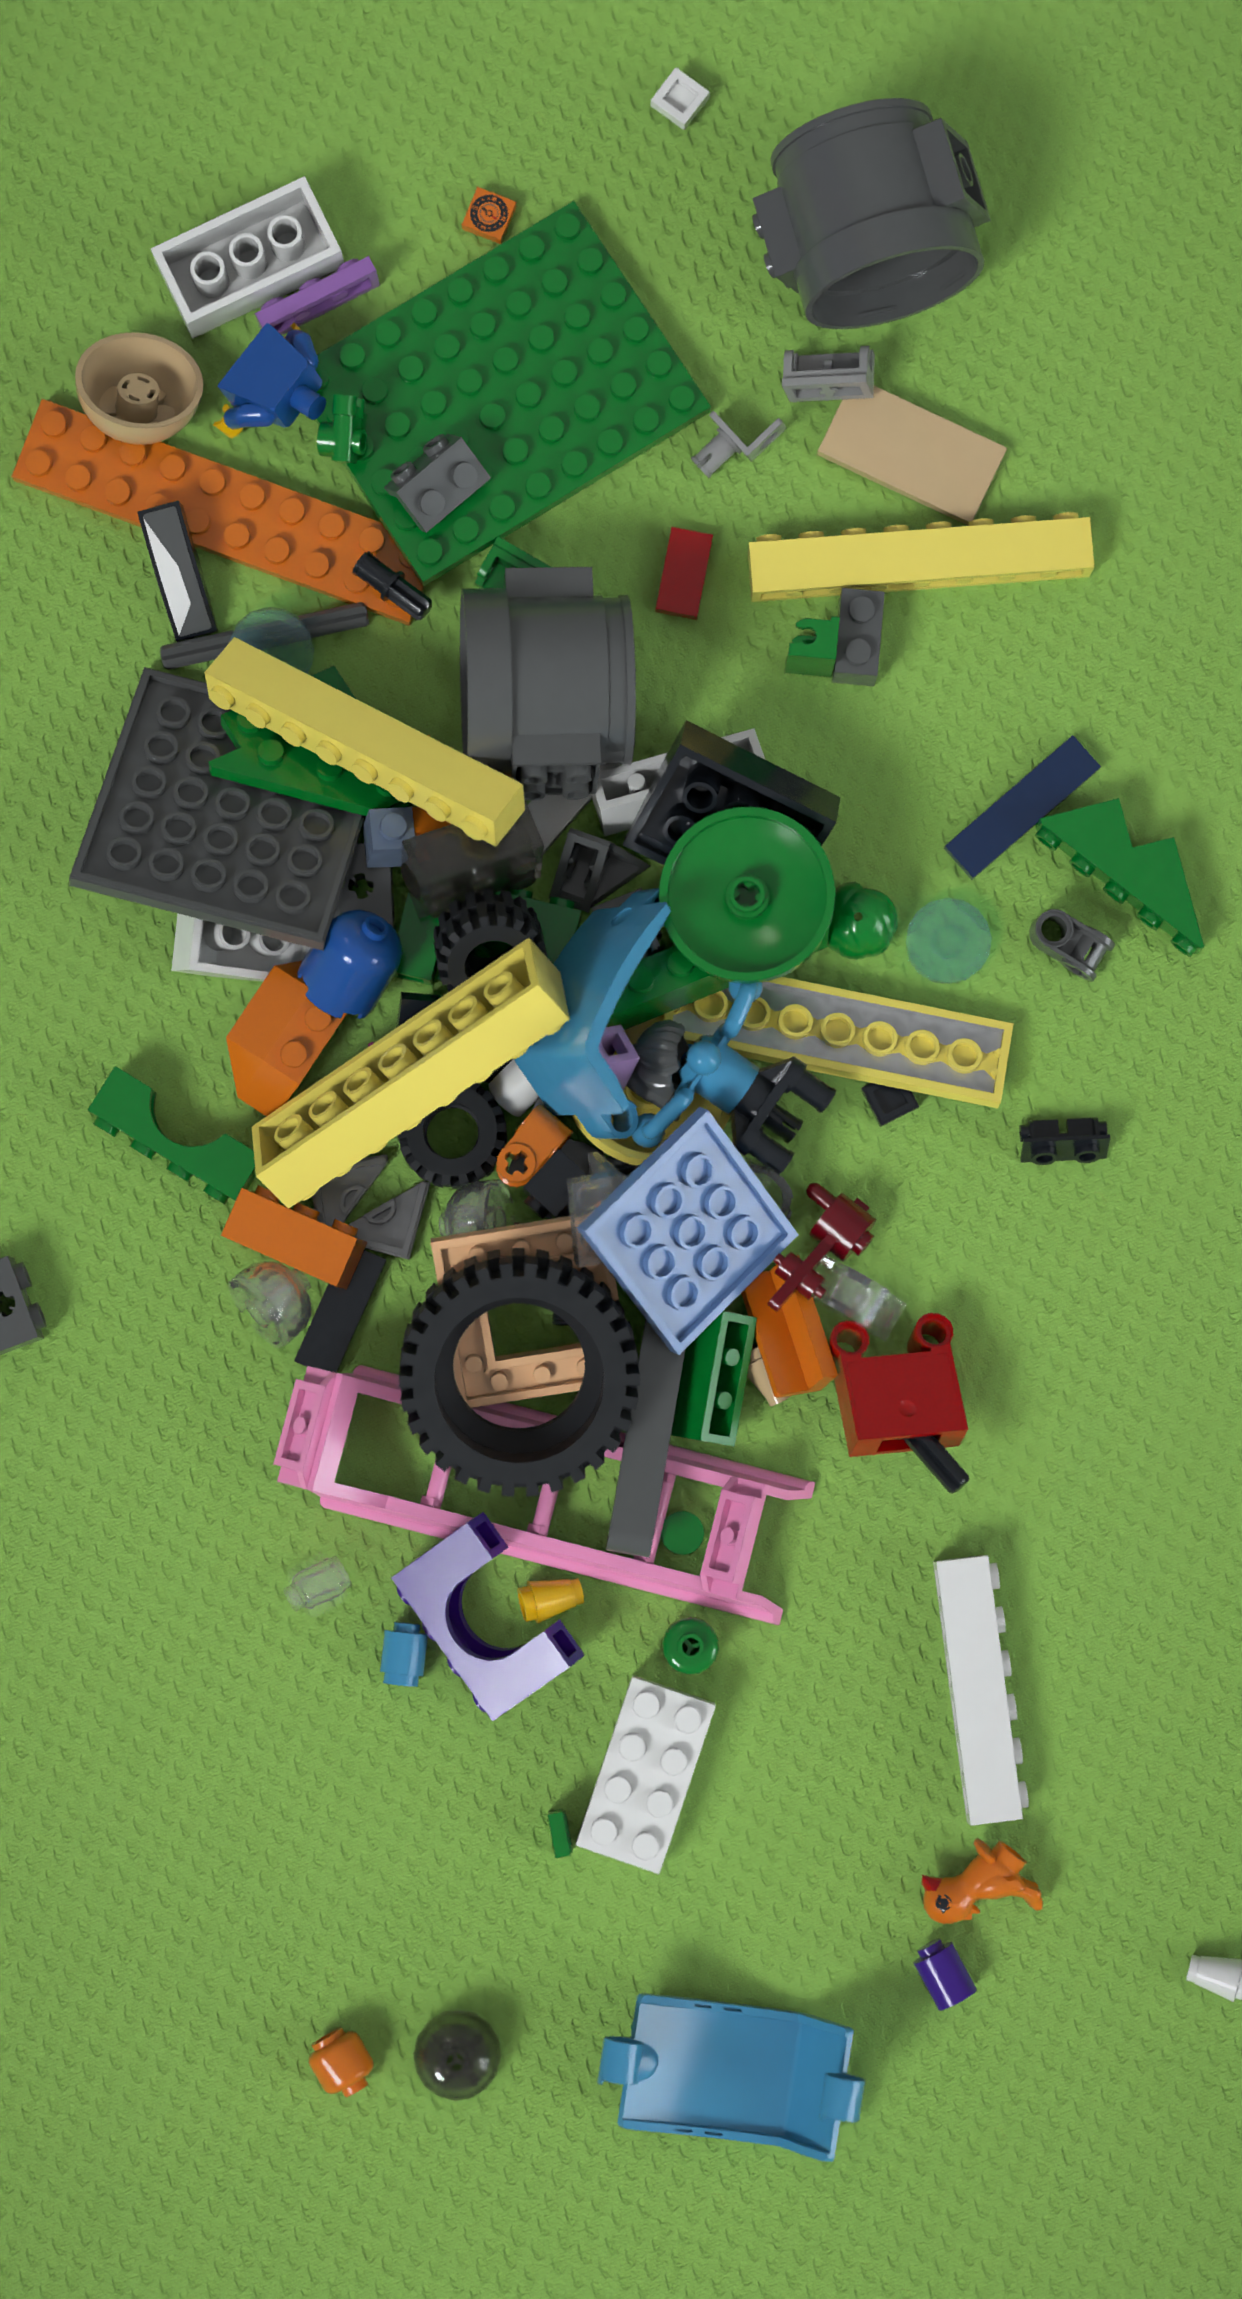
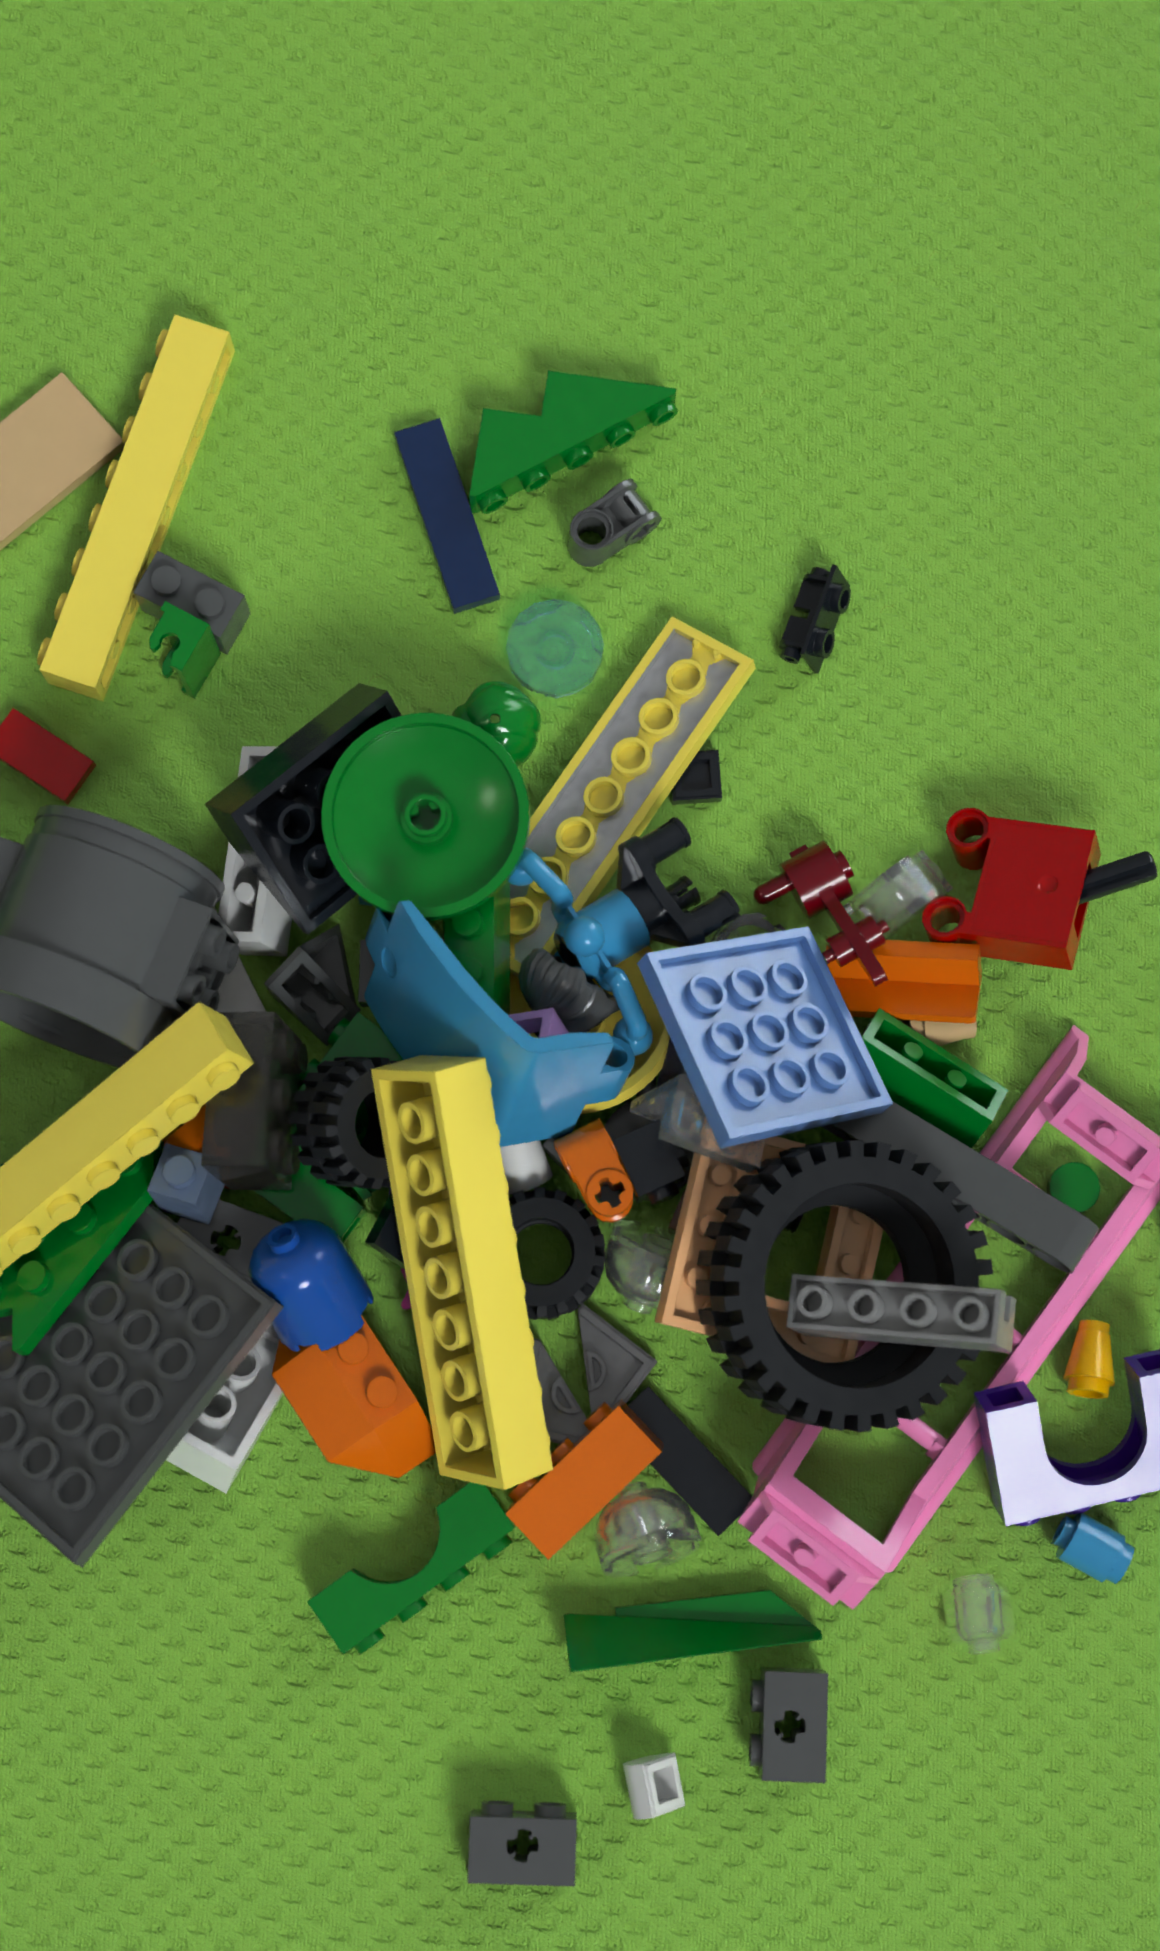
camera: 70 degrees left, 5 degrees down
(87, 1387) = (653, 1785): none -> white brick
(155, 1491) = (804, 1752): none -> dark grey brick
(212, 1362) = (683, 1629): none -> green wedge
(512, 1421) = (902, 1313): none -> light grey brick

